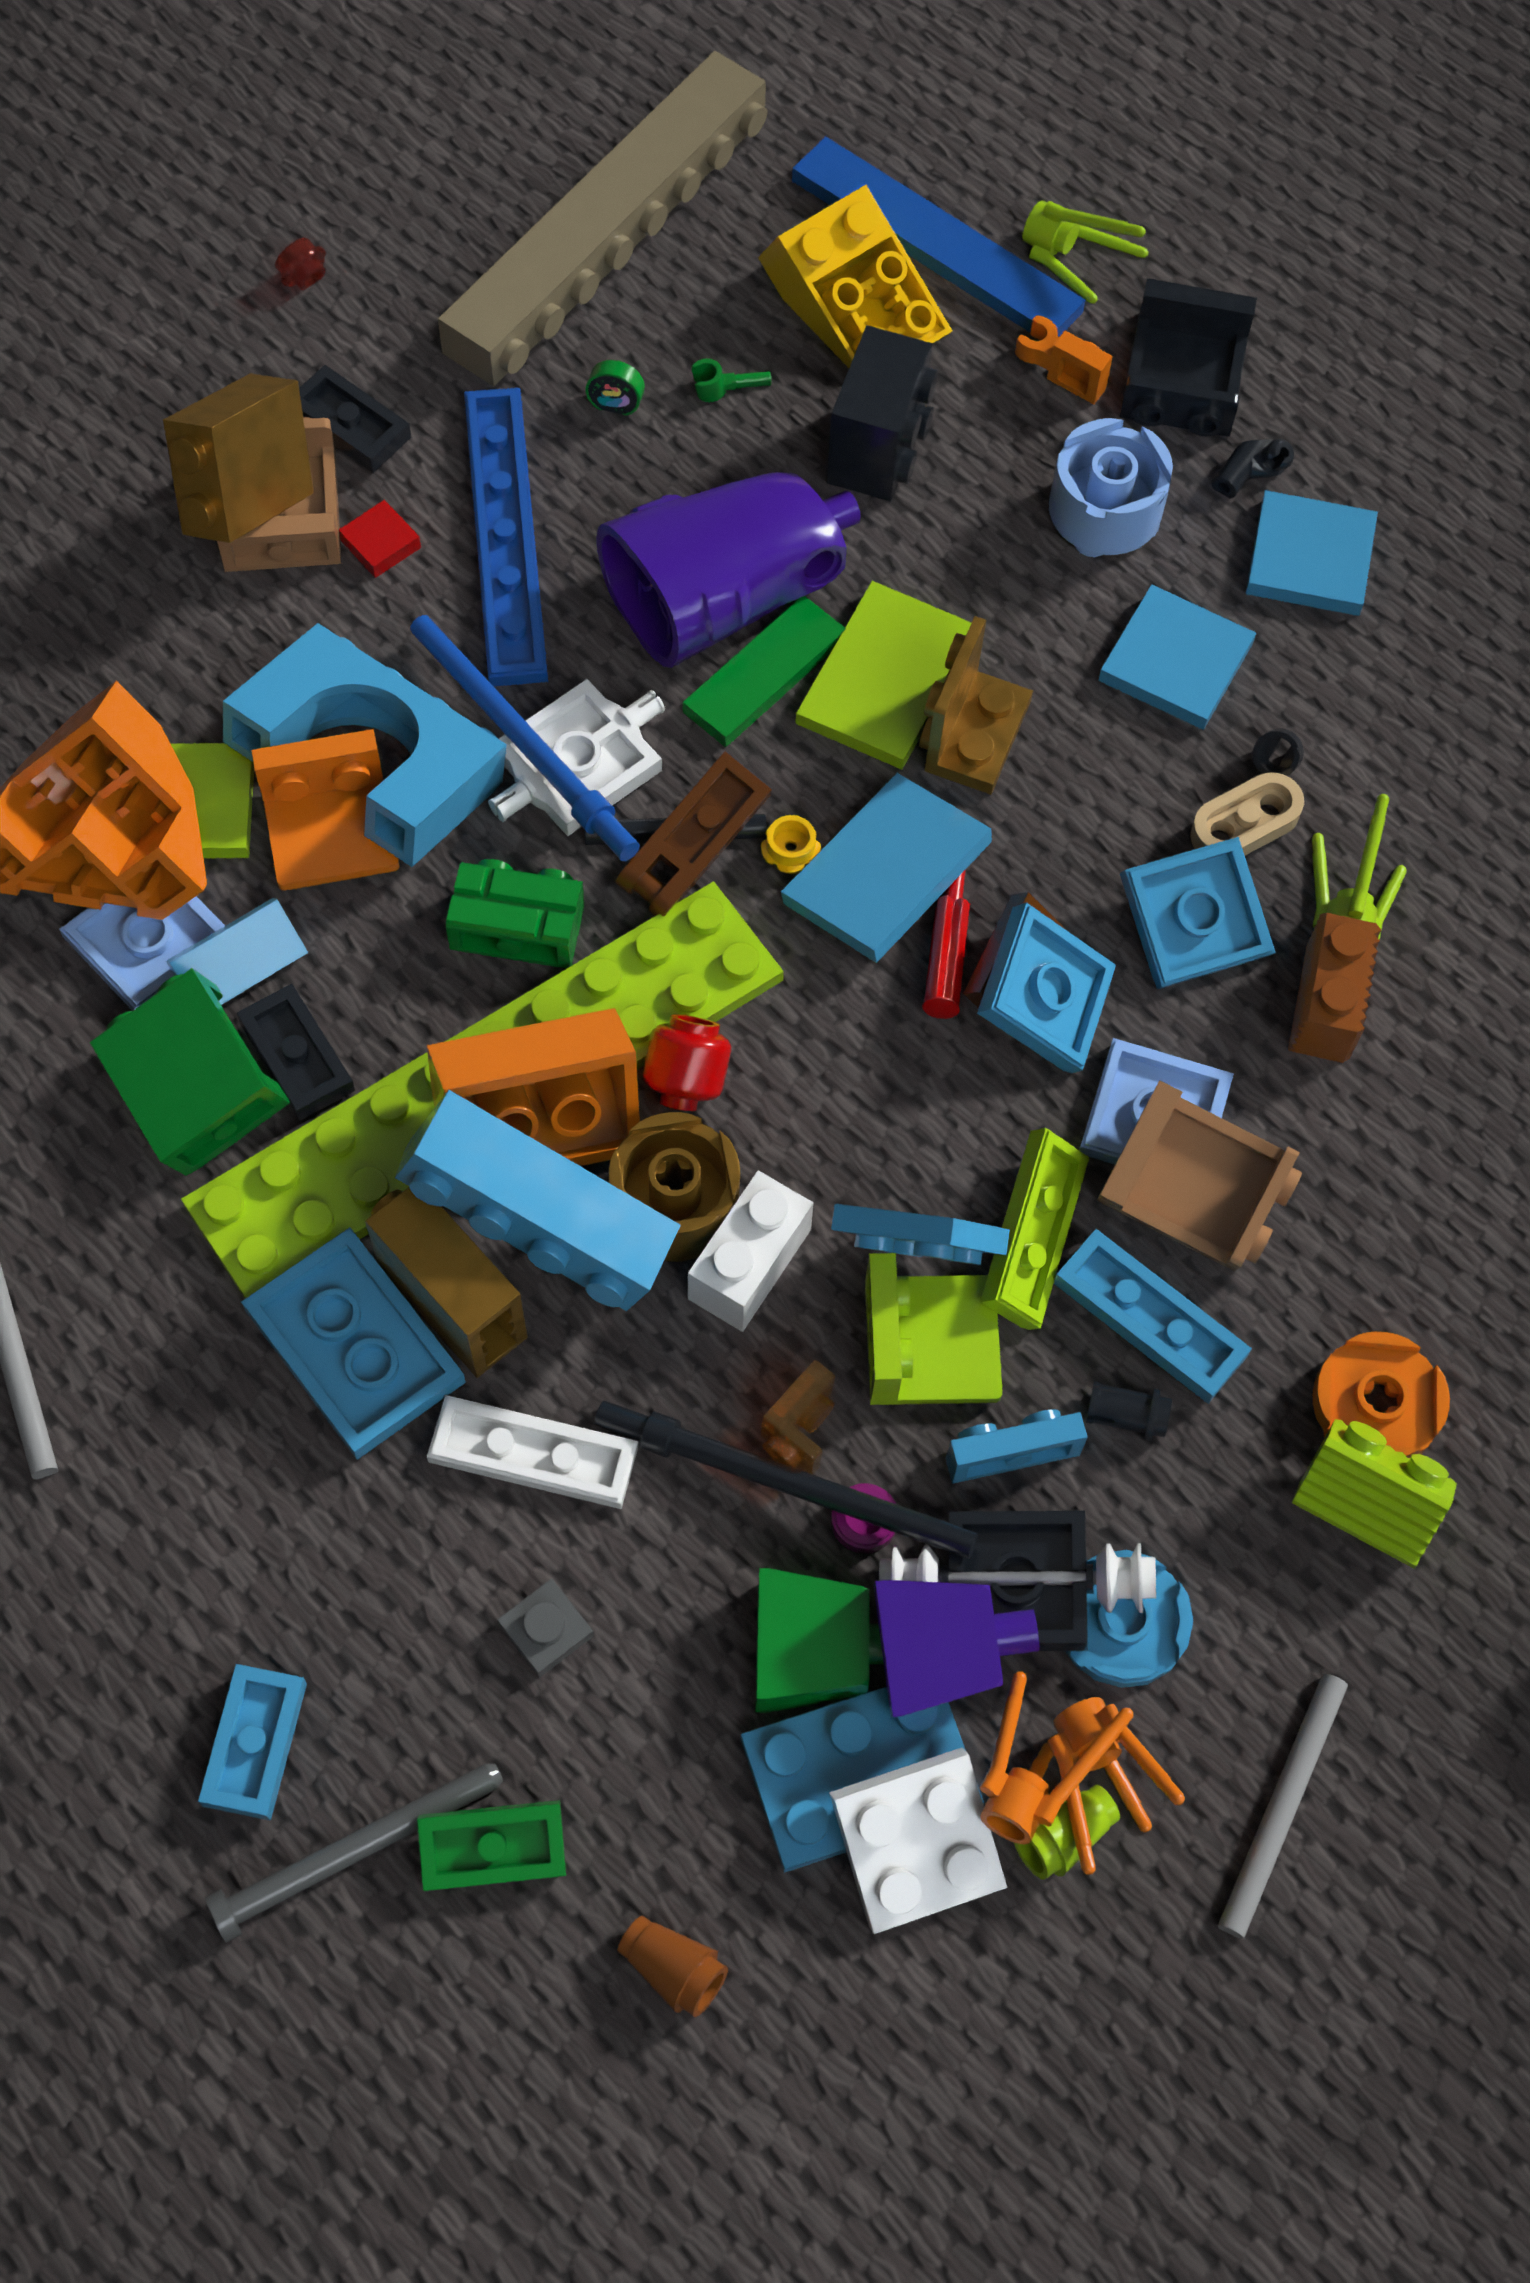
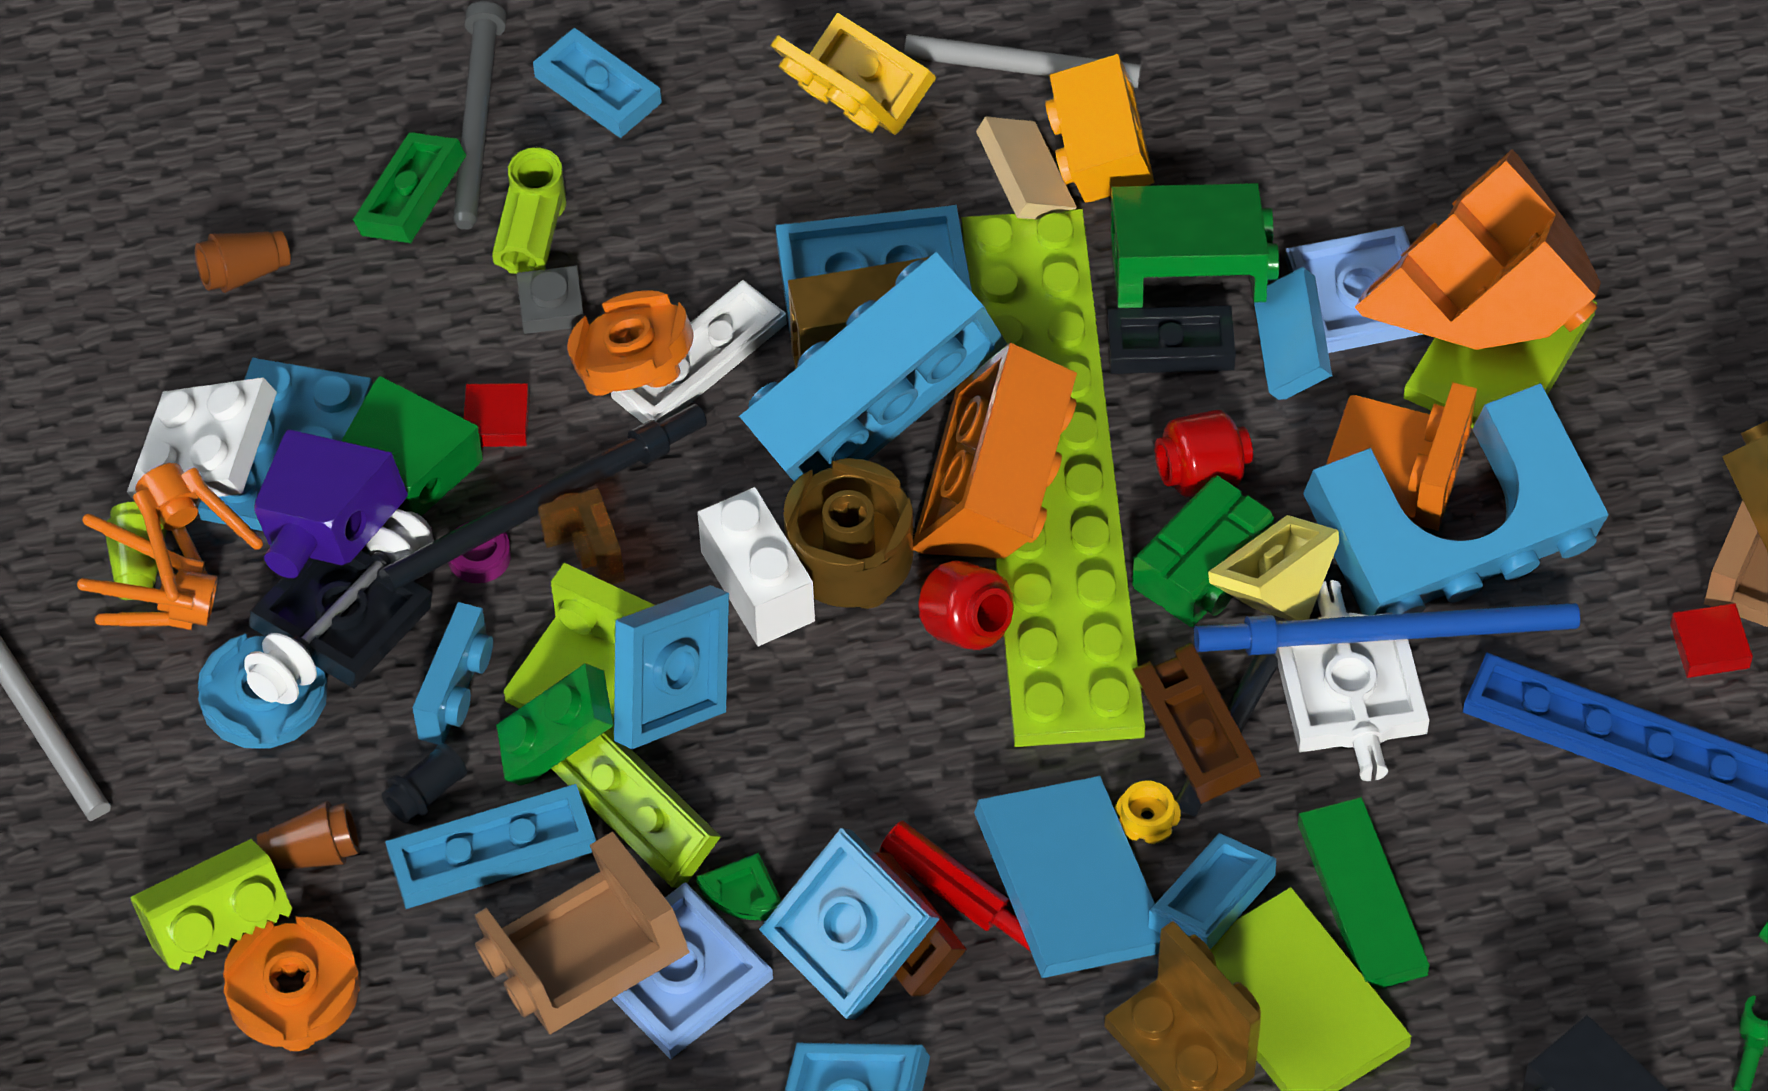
camera: 125 degrees right, 10 degrees down
(85, 1216) = (1099, 128): none -> light orange brick
(127, 1477) = (858, 75): none -> yellow bracket
(159, 1269) = (1024, 167): none -> tan tile
(416, 958) = (1200, 448): none -> red head
(469, 1694) = (530, 212): none -> lime piece
(512, 833) = (1280, 568): none -> light yellow slope
(558, 1536) = (612, 362): none -> orange plate
(707, 1595) = (499, 413): none -> red tile
(721, 559) = (1494, 884): dark purple torso -> none
(839, 759) = (1214, 890): none -> dark azure tile
(1020, 1314) = (554, 725): none -> green plate
(1051, 1103) = (741, 889): none -> green tile
(1246, 1468) = (312, 838): none -> dark orange cone

